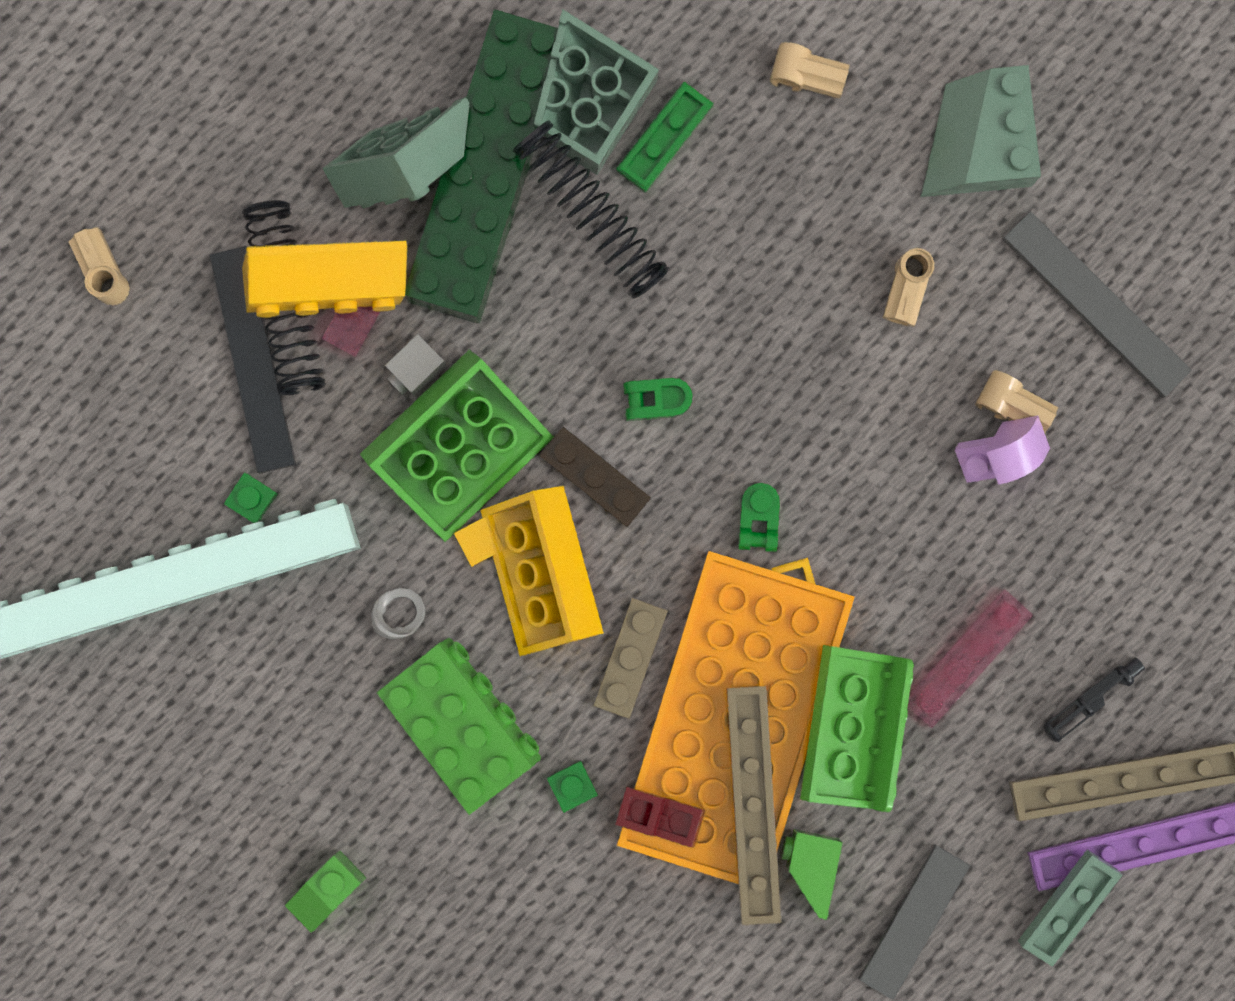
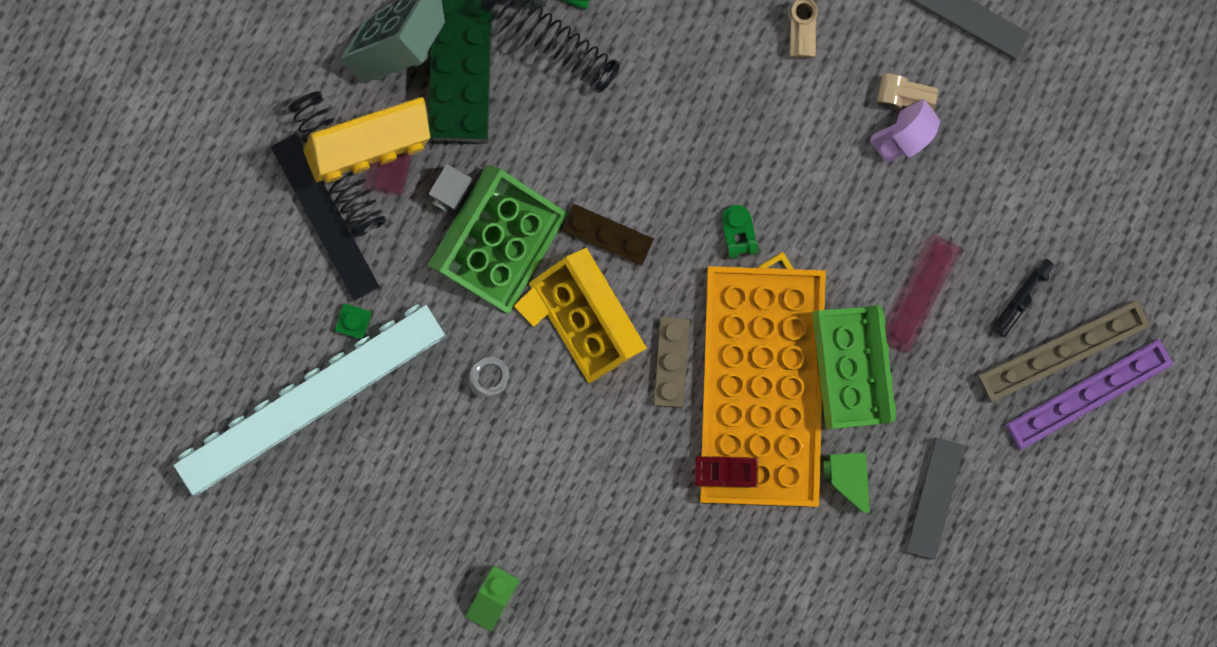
camera: 25 degrees left, 0 degrees up
(98, 266) = (188, 177): tan piece -> none
(460, 724) = (558, 446): bright green bracket -> none
(572, 786) = (654, 469): green plate -> none
(671, 397) = (648, 160): green plate -> none
(753, 805) = (793, 443): dark tan plate -> none
(1070, 908) = (1045, 455): sand green plate -> none

